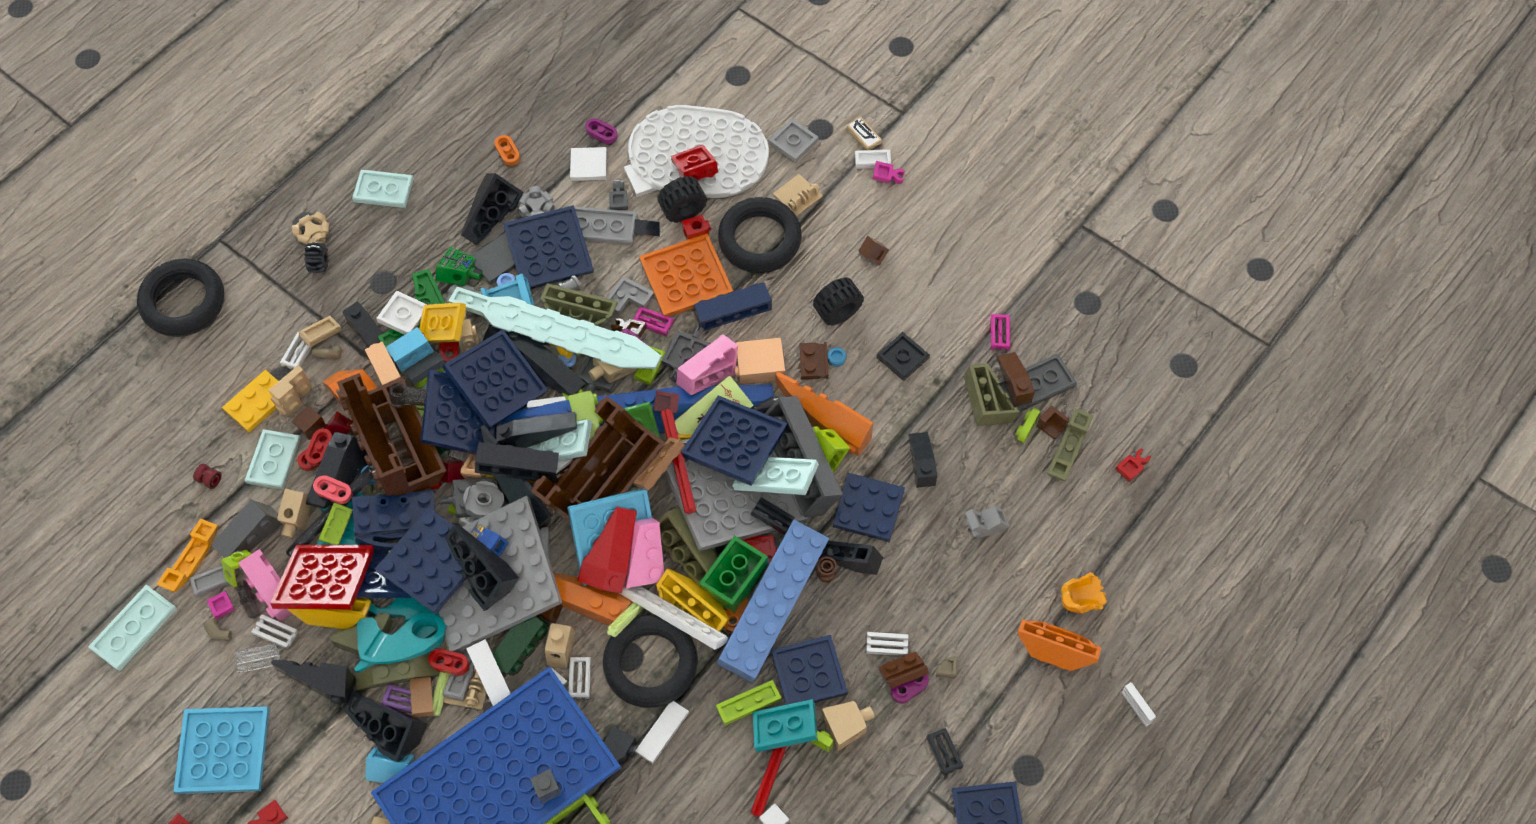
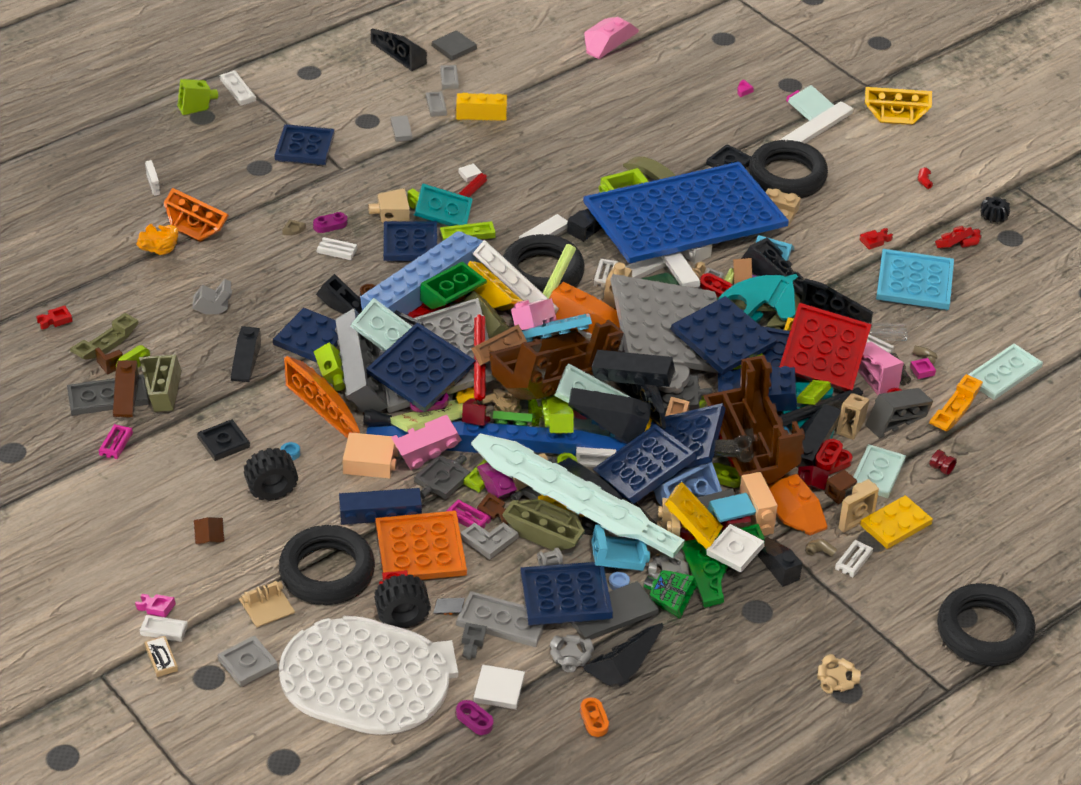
camera: 170 degrees left, 20 degrees down
(208, 581) = (936, 390): light grey tile -> none
(231, 563) = (905, 378): lime bracket -> none
(316, 257) = (831, 630): black gear -> none
(319, 331) = (829, 566): tan tile -> none
(334, 489) = (814, 405): coral plate -> none
(383, 188) = (751, 708): light aqua tile -> none
(486, 572) = (674, 298): black wedge -> none
(489, 538) = (669, 329): blue leg -> none
(546, 786) = (645, 187): dark grey brick -> none
(609, 558) = (560, 309): red wedge -> none
(695, 163) = (375, 638): red plate -> none
(813, 361) = (315, 452): reddish brown plate -> none
(903, 669) = (331, 225): reddish brown plate -> none
(951, 768) = (321, 192): black tile -> none

